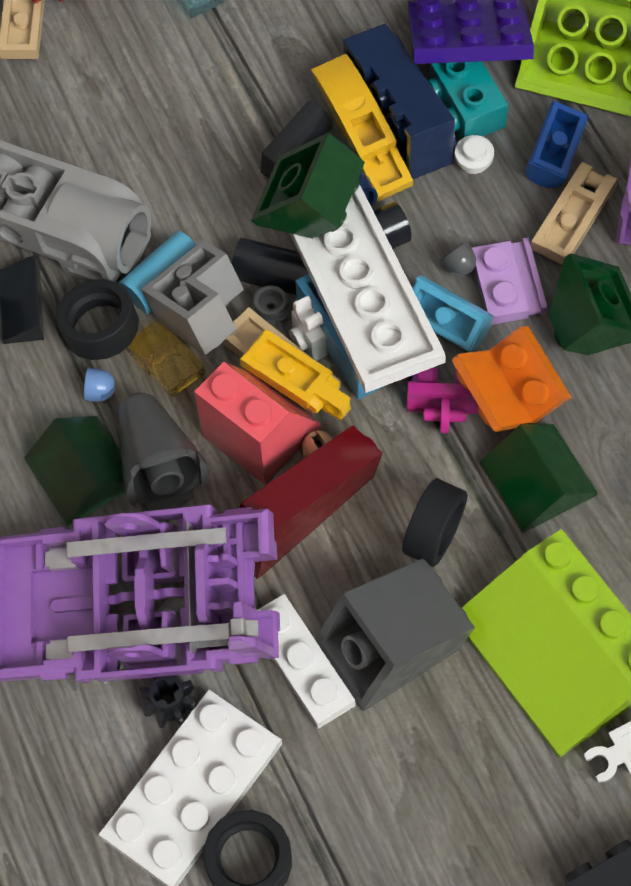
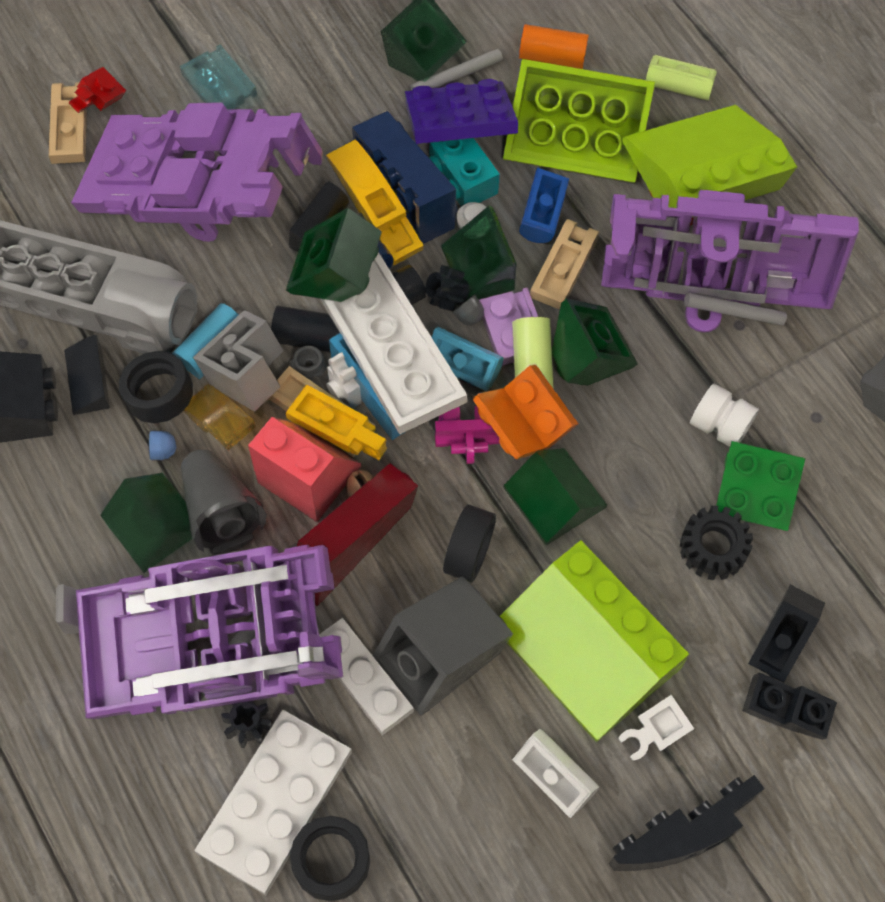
camera: 10 degrees left, 0 degrees up
(103, 77) = (143, 171): none -> medium lavender piece
(436, 231) = (447, 288): none -> black gear
(478, 200) = (483, 255): none -> clear green slope
(509, 787) = (556, 773): none -> white brick
(528, 304) = (533, 345): none -> yellowish green brick

